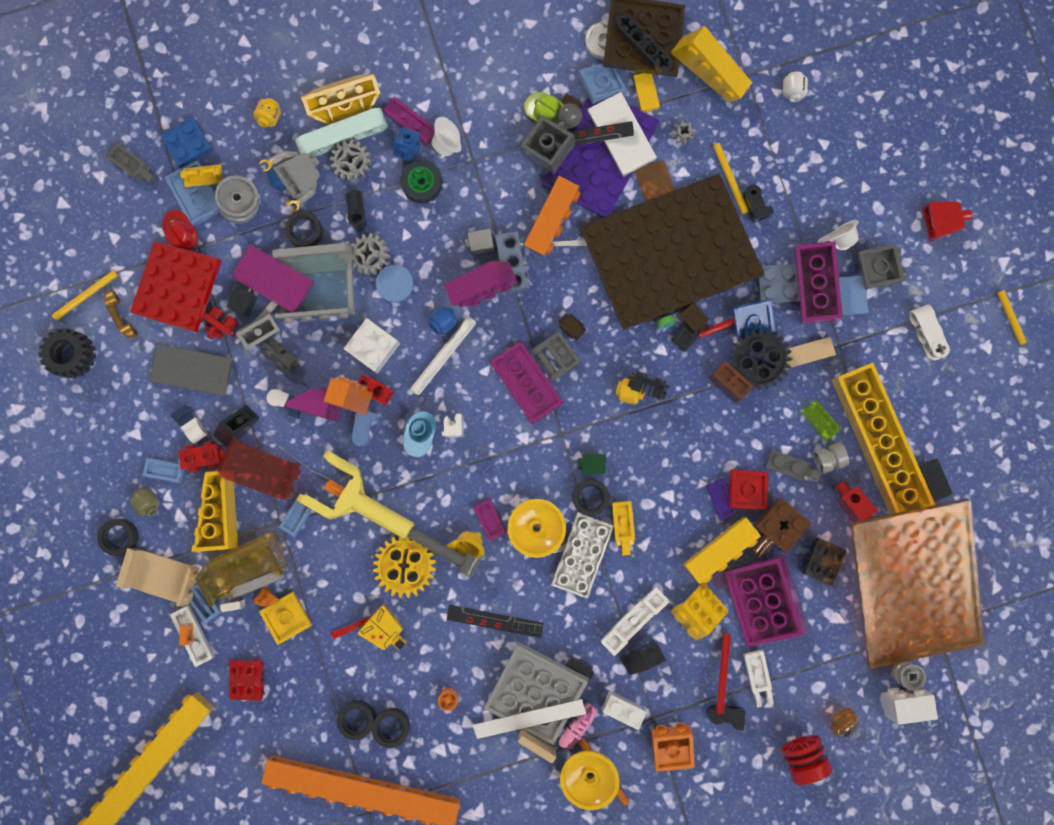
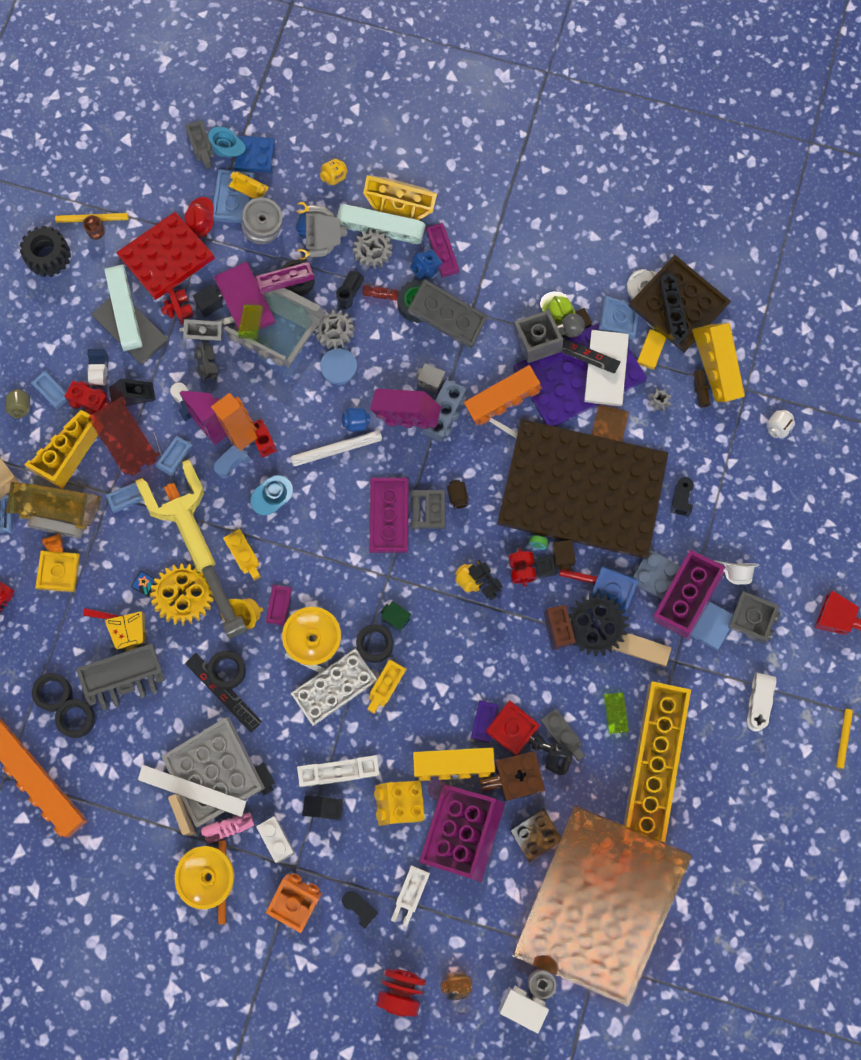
camera: 35 degrees right, 10 degrees down
(90, 301) = (93, 227): none -> copper wheel
(111, 300) = (108, 234): pearl gold bar -> none
(153, 149) = (225, 142): none -> dark azure piece
(173, 357) = (123, 307): none -> light aqua beam
(234, 605) = (23, 531): white tile -> none
(293, 296) = (250, 321): none -> clear neon green tile
(295, 237) = (284, 277): none -> magenta tile
(311, 455) = (174, 455): none -> medium blue tile
(365, 578) = (143, 583): none -> tile
(372, 345) = (284, 401): white brick -> none
(384, 195) = (379, 292): none -> clear red axle
(402, 667) = (120, 673): none -> dark grey hinge
(429, 497) = (243, 553): none -> yellow hinge
(446, 137) = (461, 279): white piece -> none
(448, 702) = (138, 727): orange wheel -> none
(454, 429) = (305, 510): white hinge -> none
(455, 176) = (447, 313): none -> dark grey tile
(471, 603) = (226, 684): none -> black tyre
(667, 352) = (522, 567): none -> red wheel
(710, 99) = (701, 388): none -> dark brown axle
(723, 673) = (381, 868): red bar -> none
(730, 178) = (675, 463): yellow bar -> none
(797, 485) = (554, 753): none -> black piece
(834, 456) = (602, 749): light grey wheel -> none
(862, 506) = (600, 804): red torso -> none
(935, 479) = (680, 828): black hinge -> none

